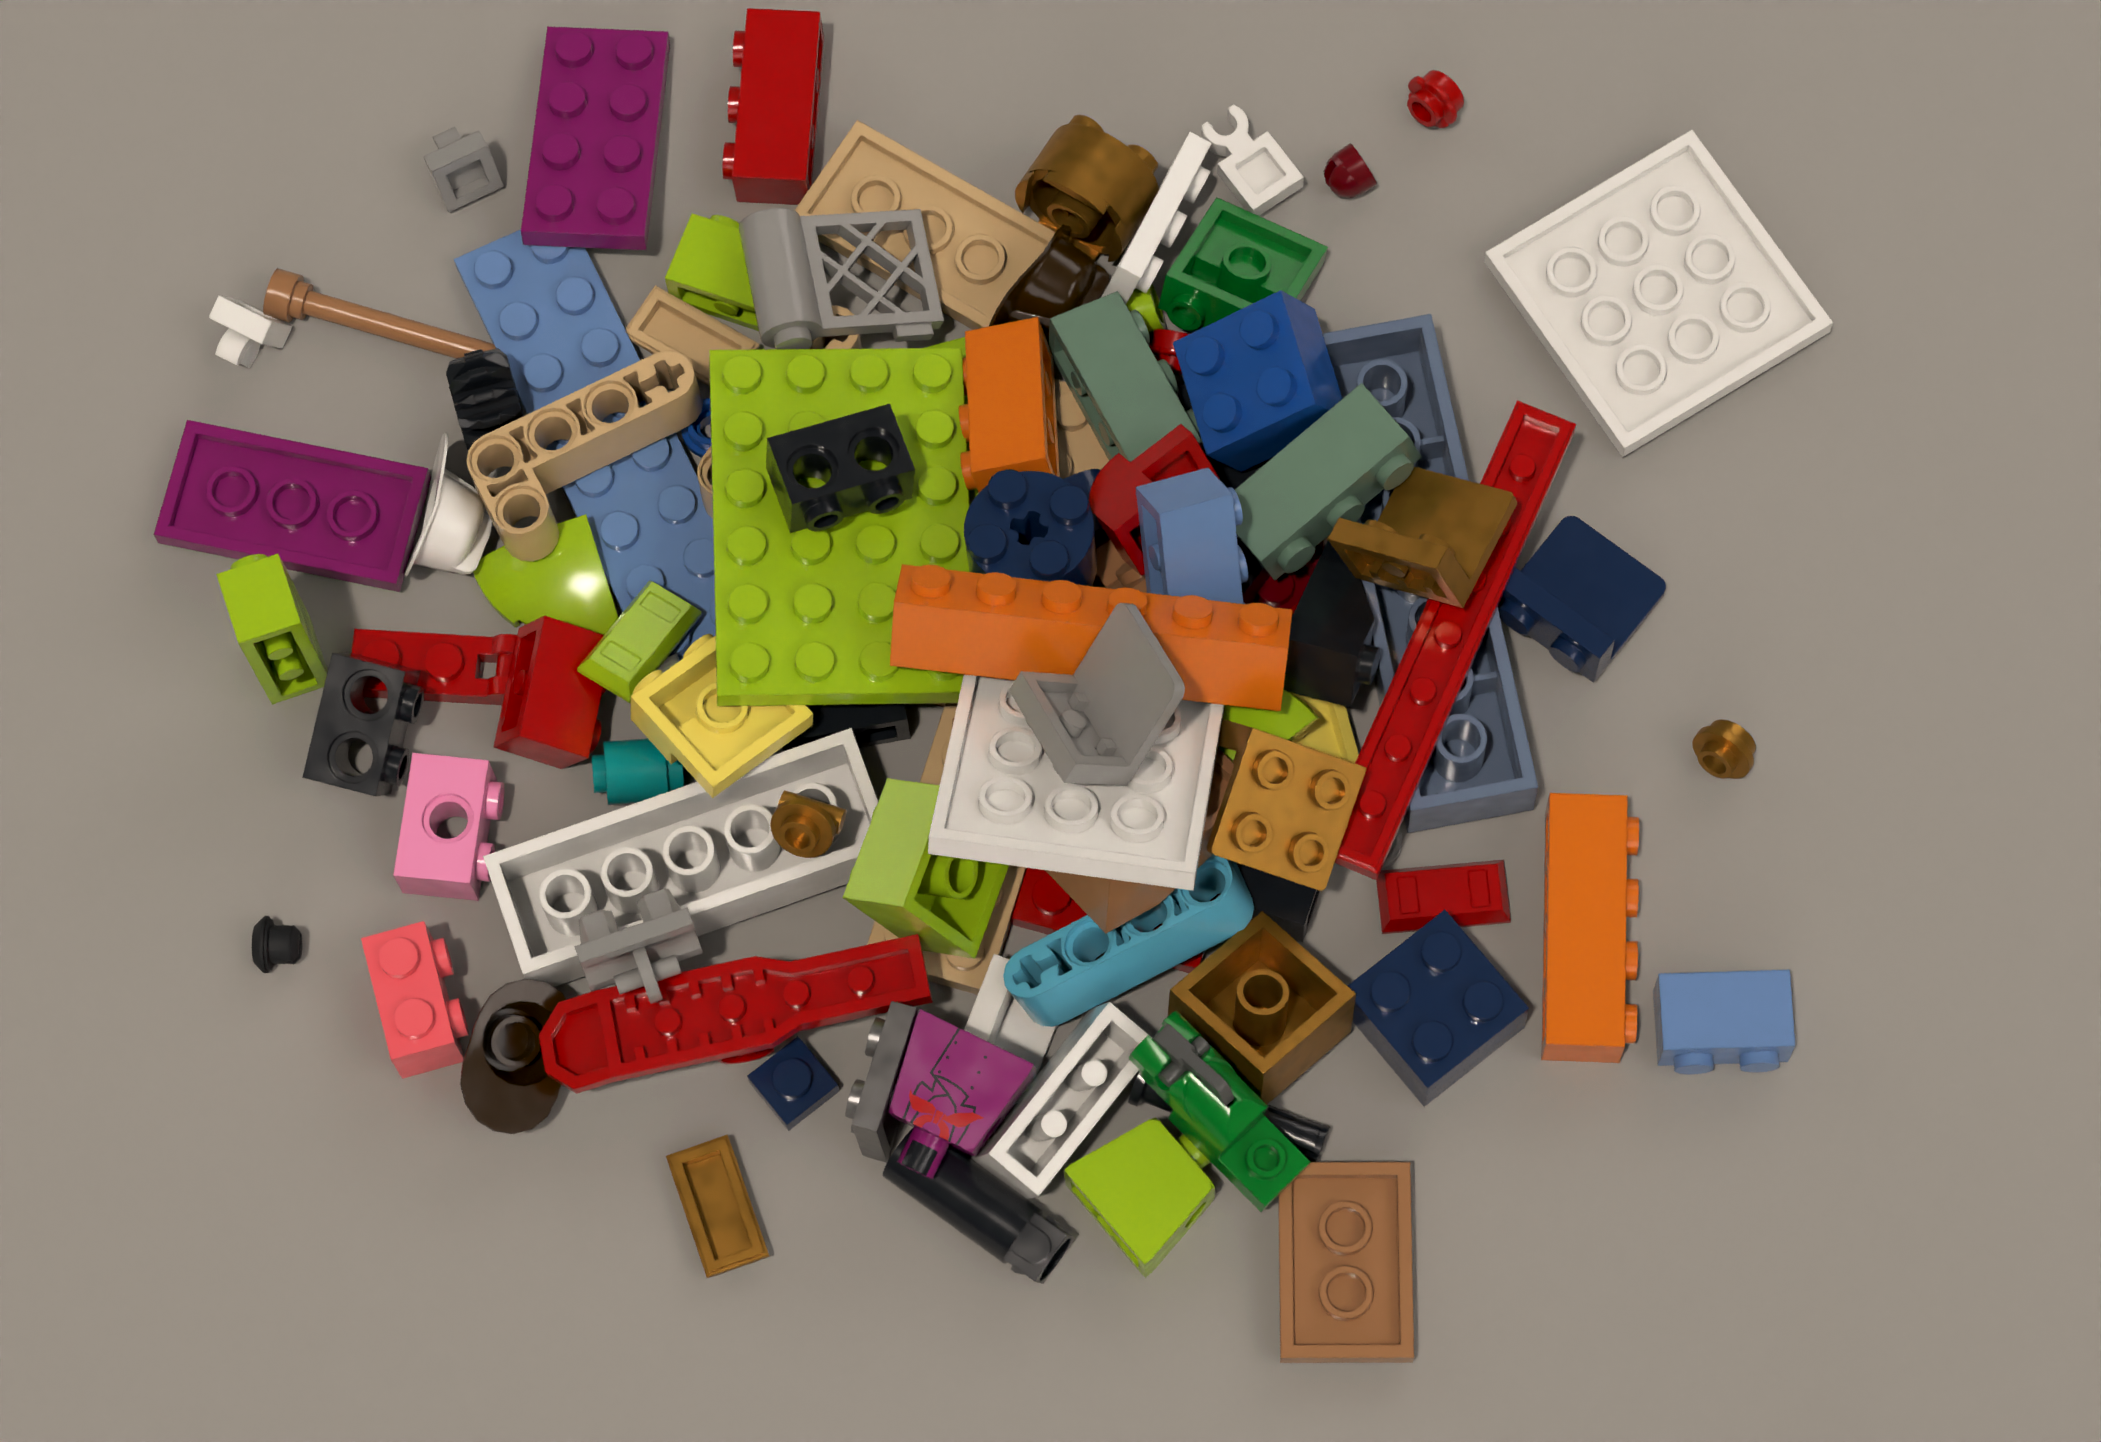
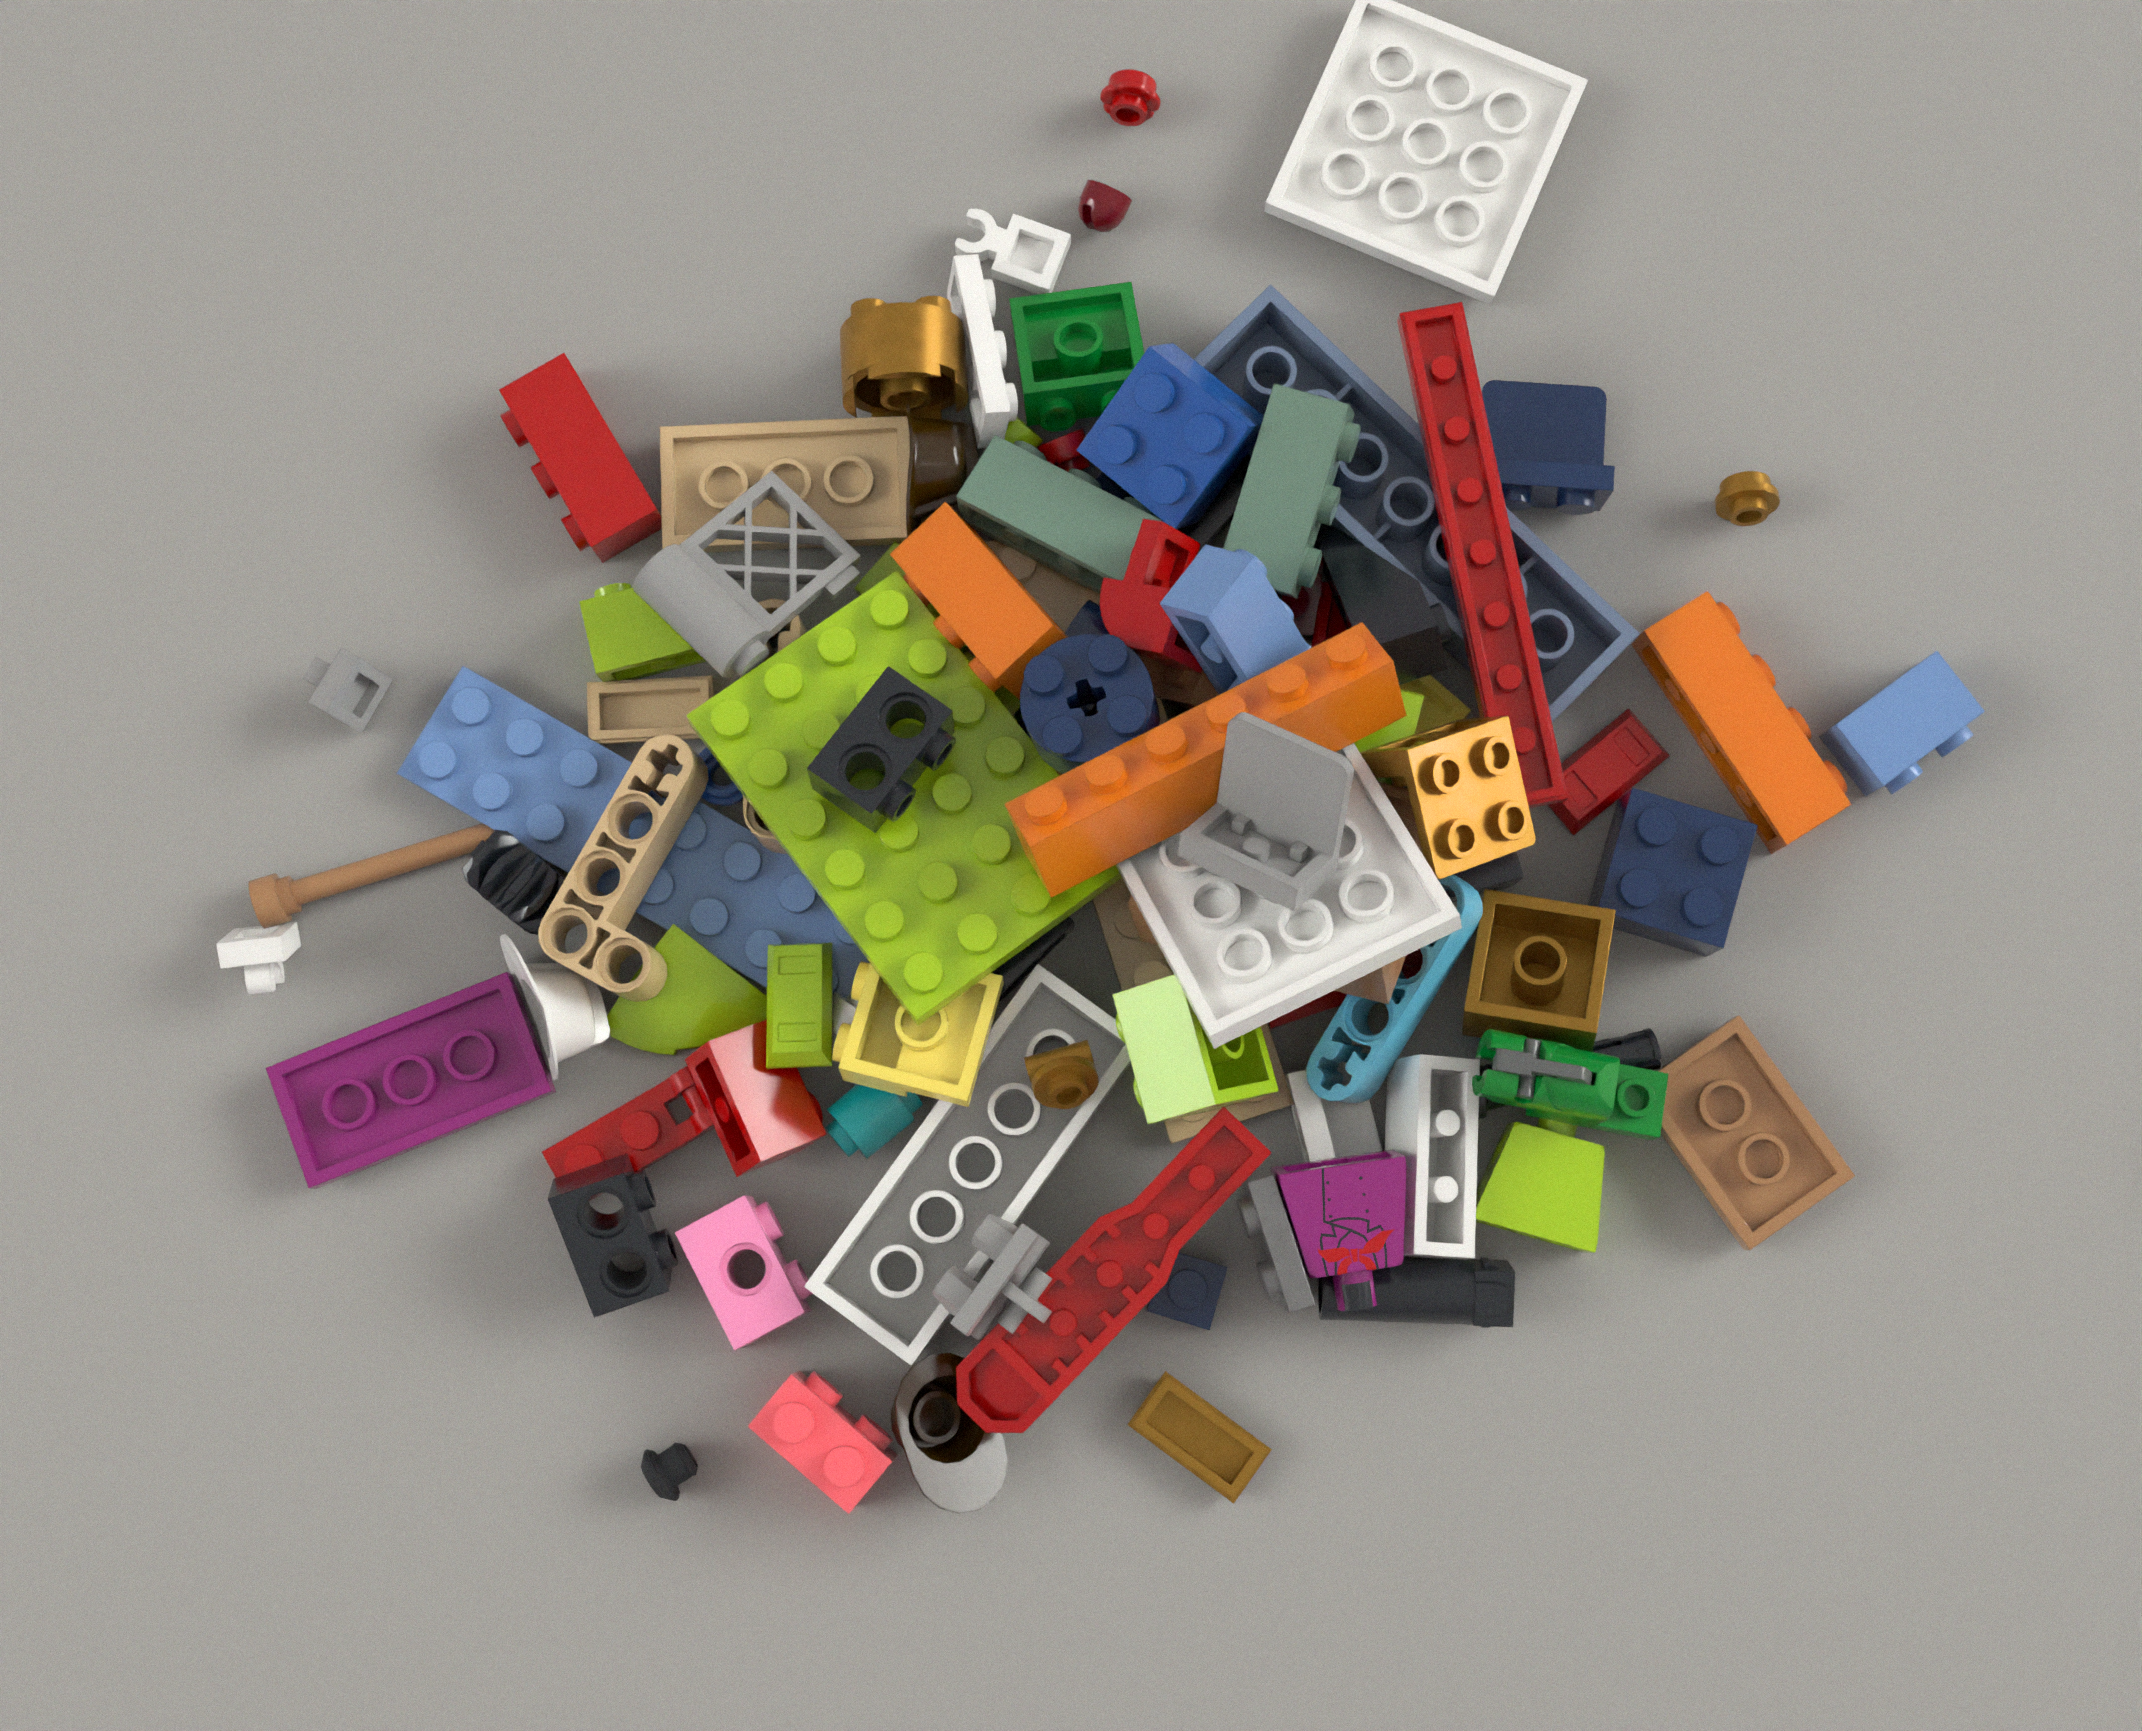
camera: 35 degrees left, 10 degrees up
(273, 627) = (476, 1209): lime brick -> none
(596, 138) = (445, 587): magenta plate -> none
(1428, 536) = (1416, 478): pearl gold bracket -> none

